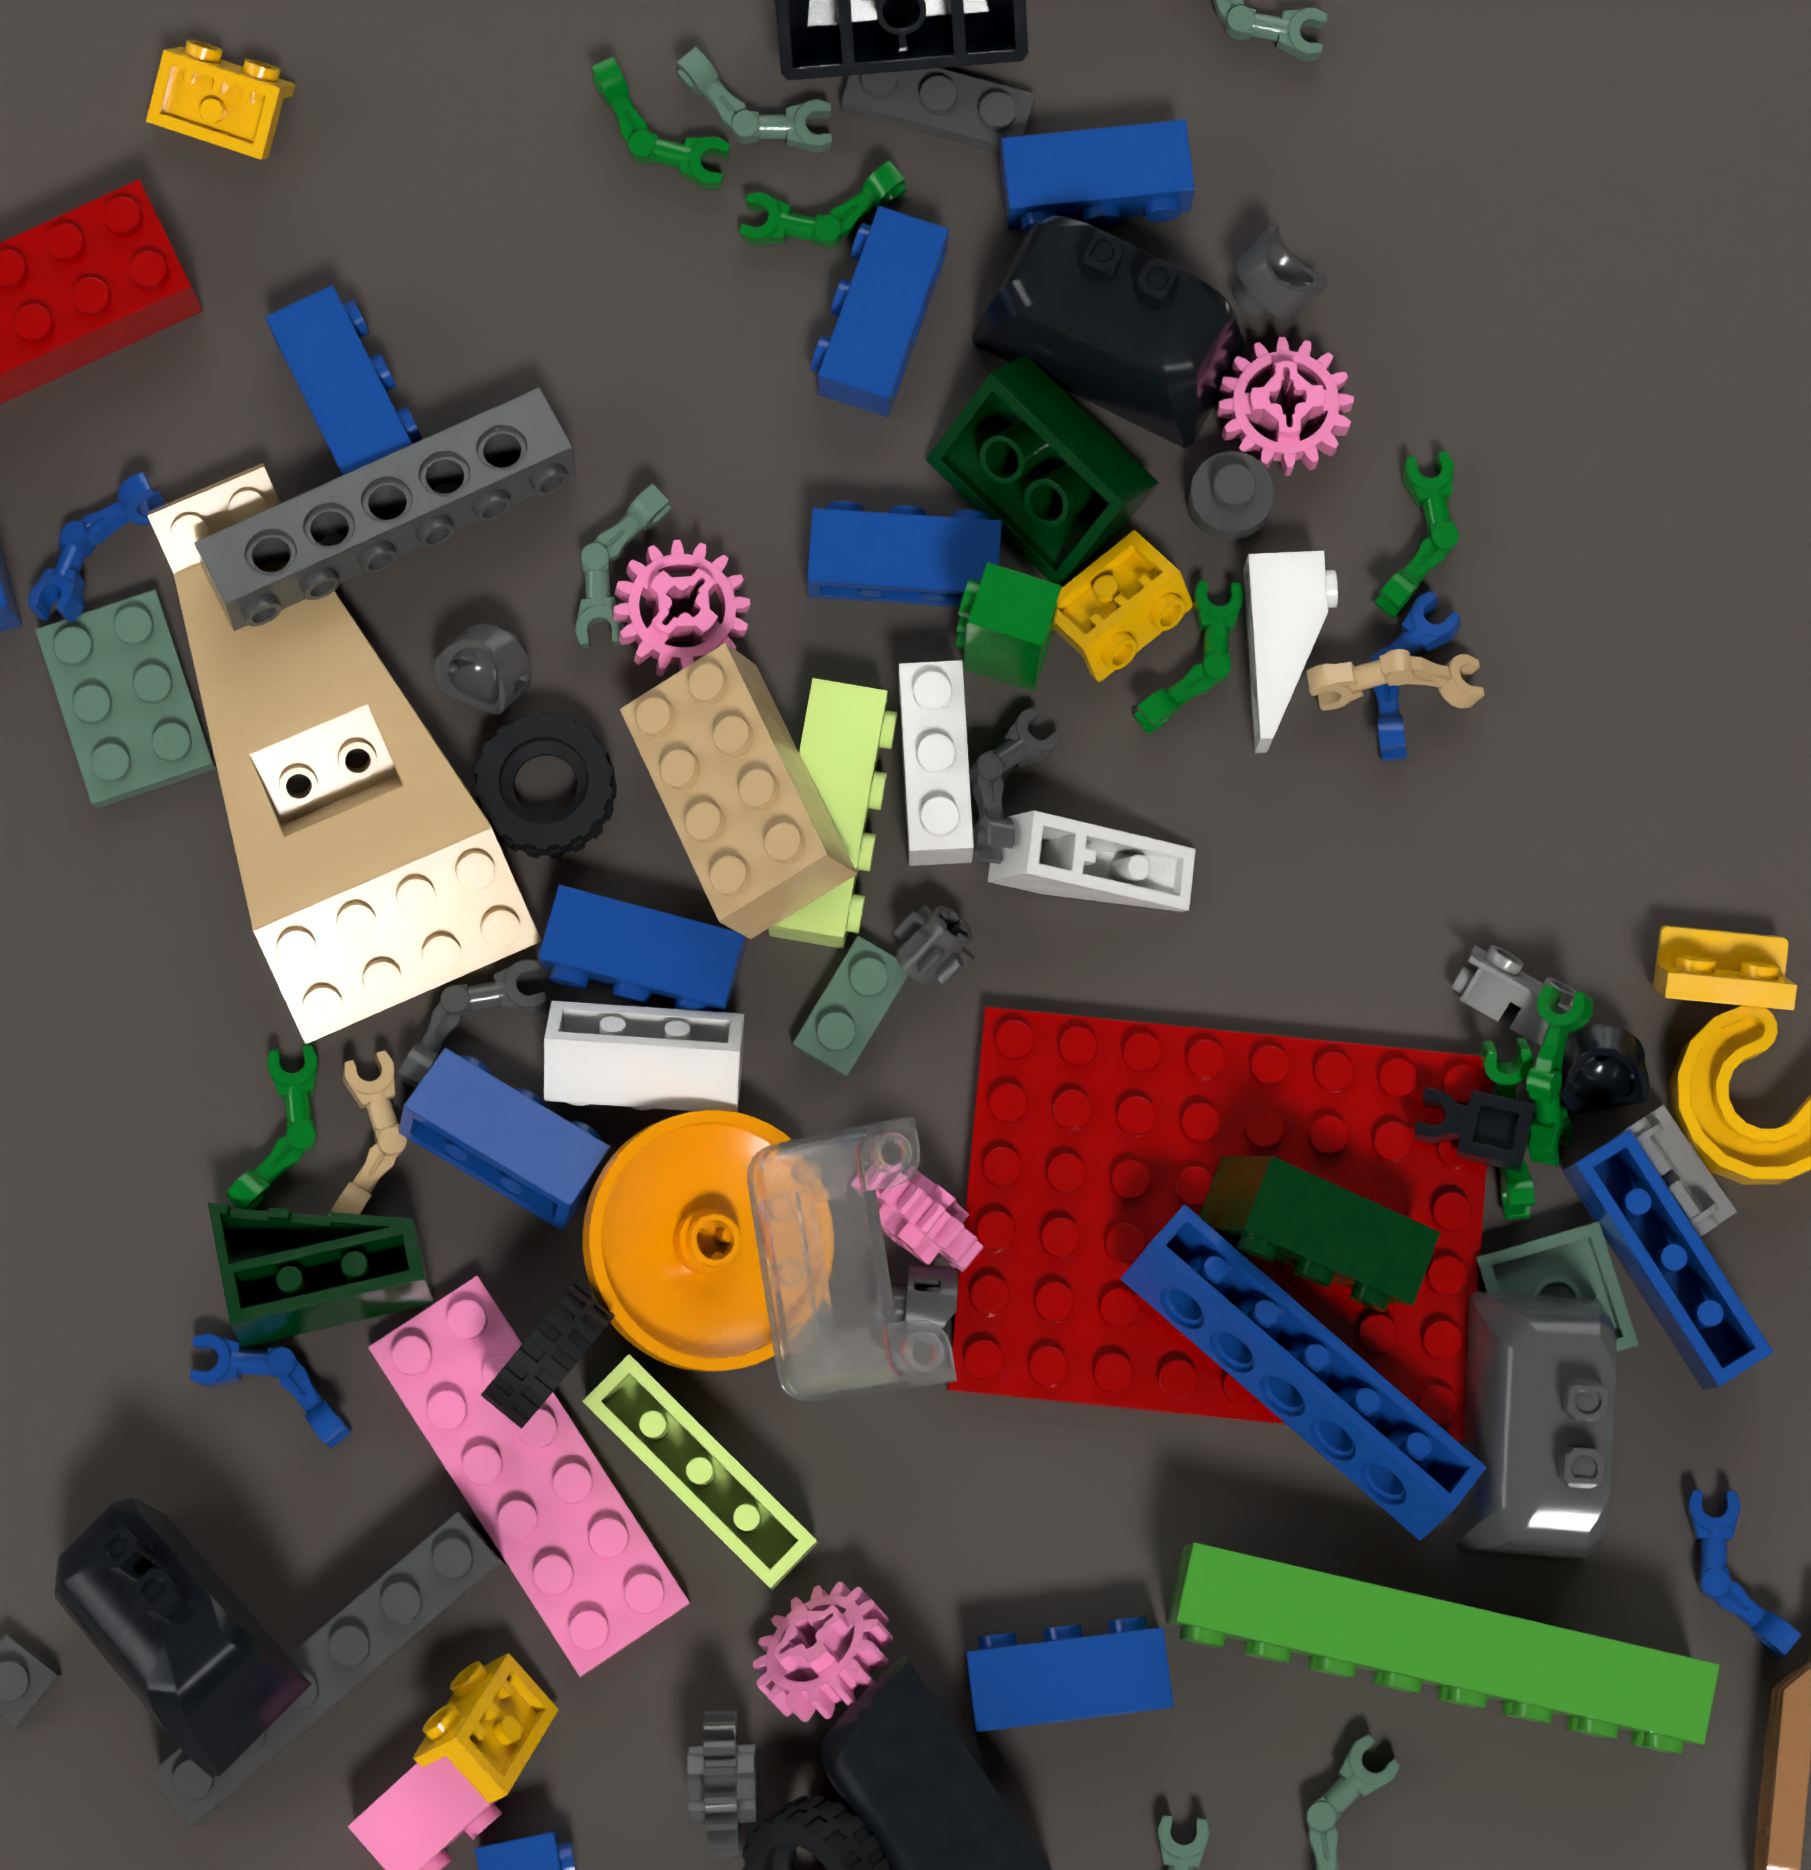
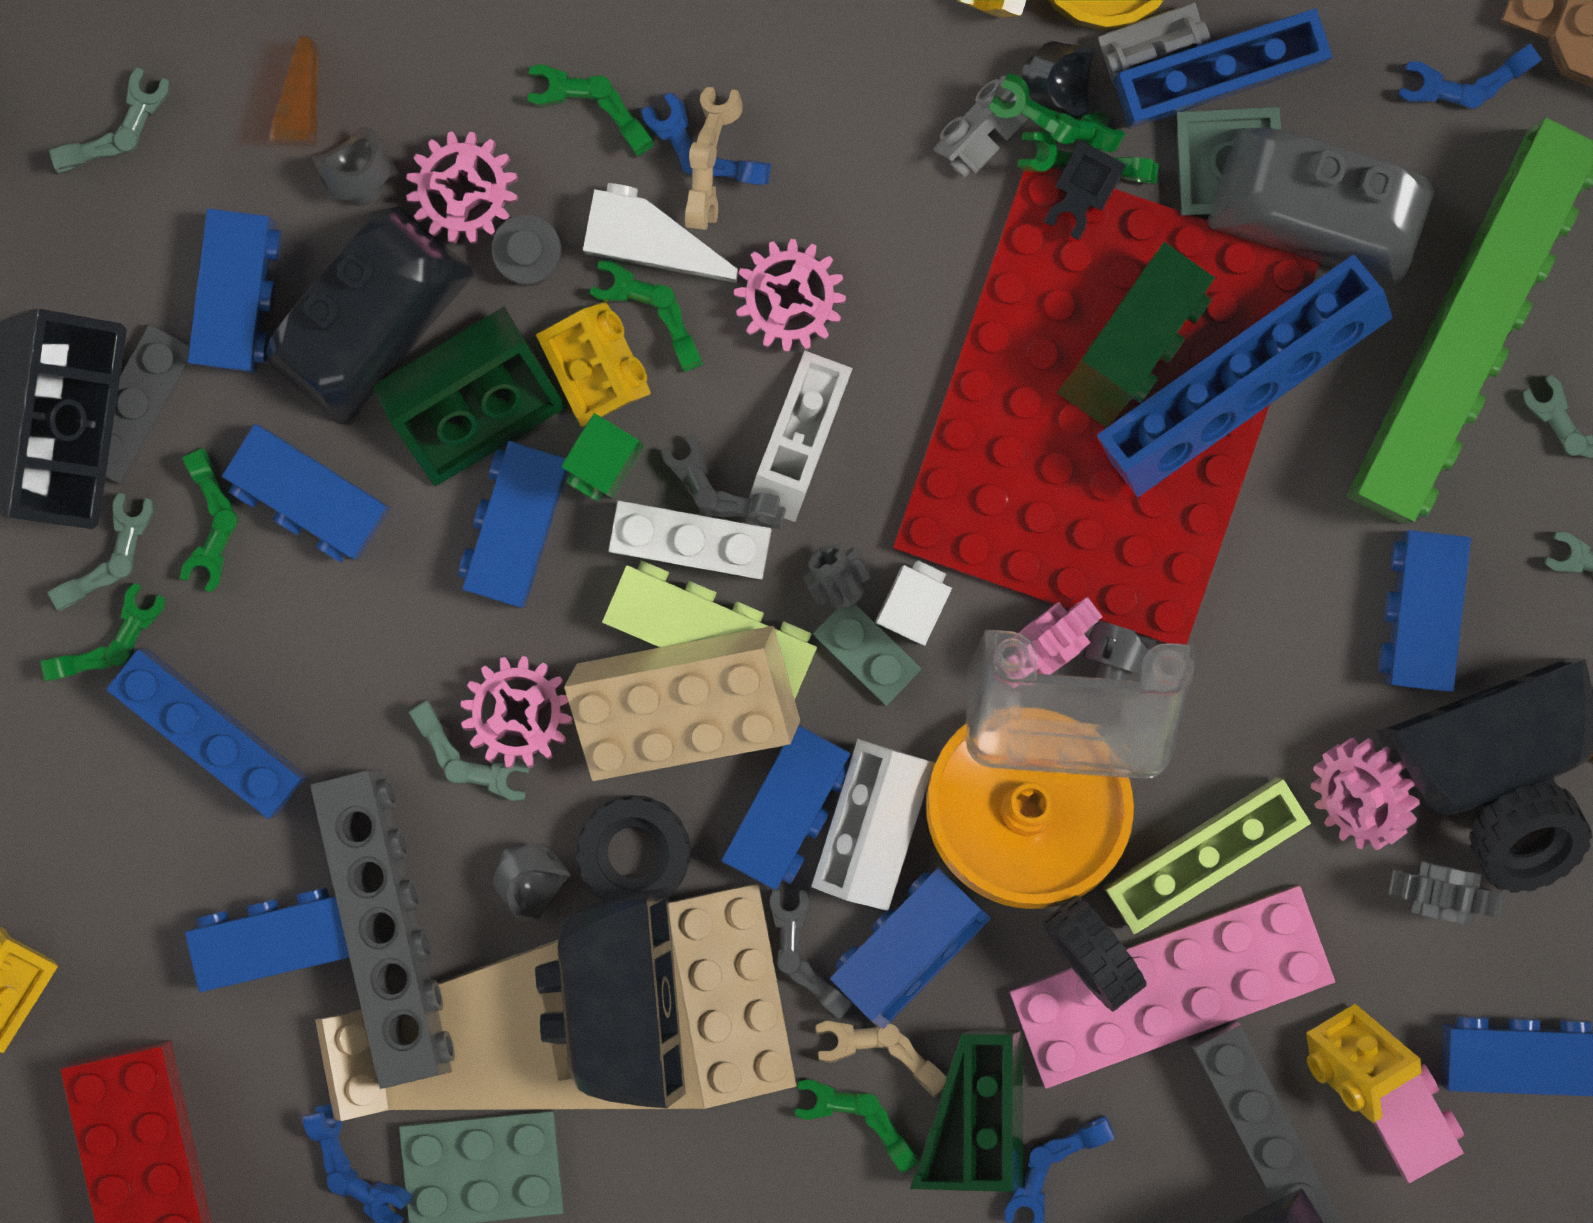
camera: 75 degrees left, 10 degrees up
(361, 793) = (618, 1001): none -> black hips
(573, 262) = (207, 733): none -> blue brick
(925, 1033) = (914, 602): none -> white brick
(1281, 815) = (779, 316): none -> bright pink gear
(1336, 199) = (297, 108): none -> clear orange slope

